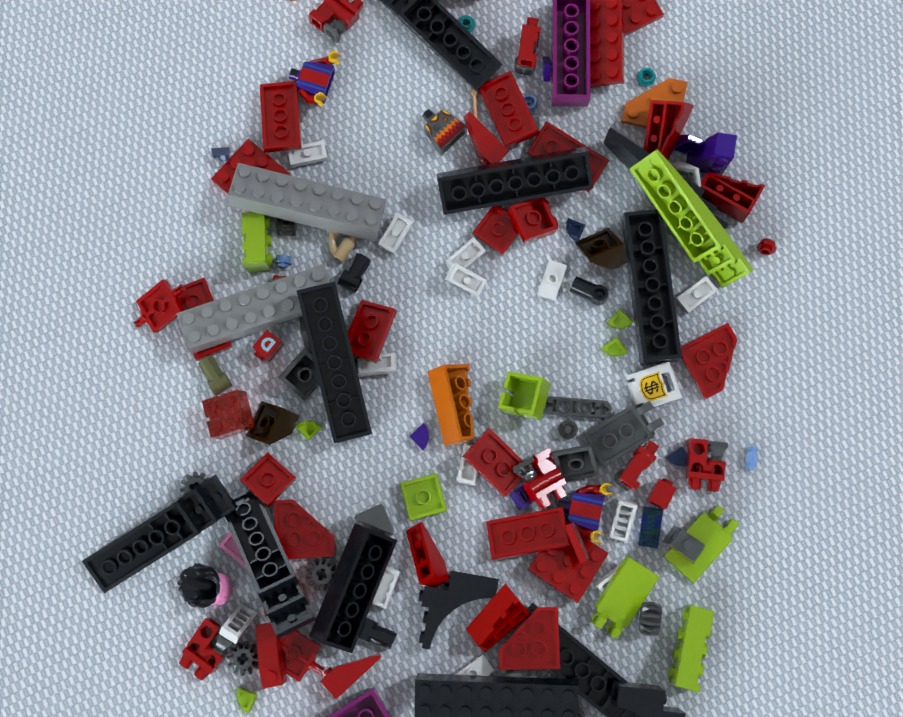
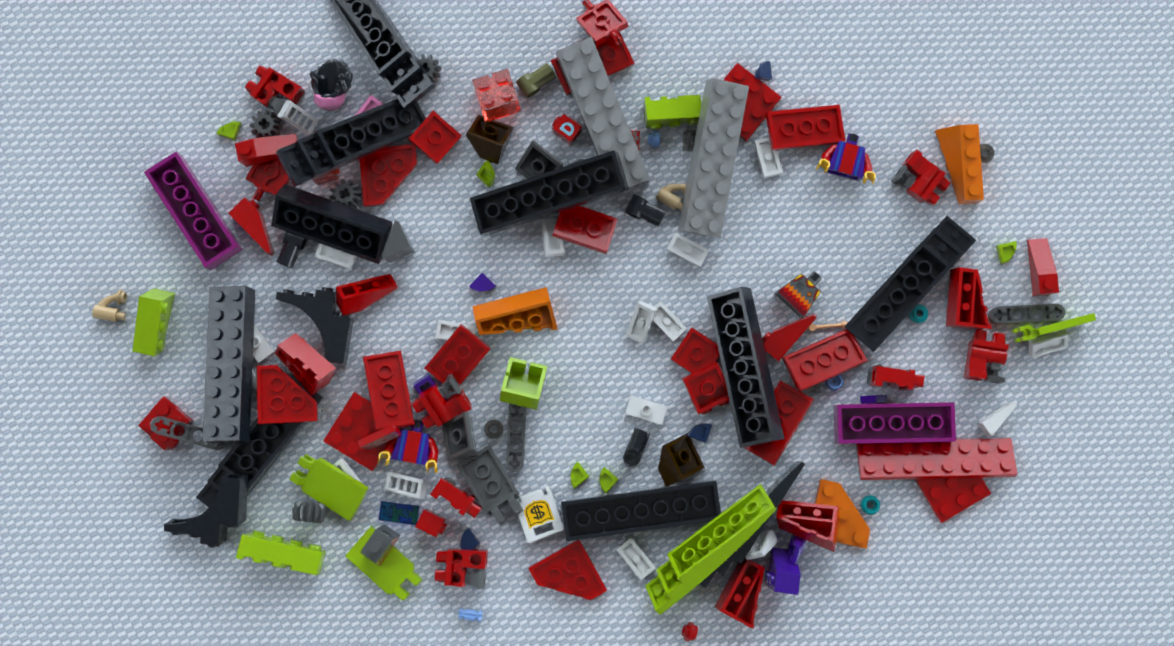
camera: 90 degrees right, 5 degrees up
(423, 497) = (422, 288): lime plate -> none

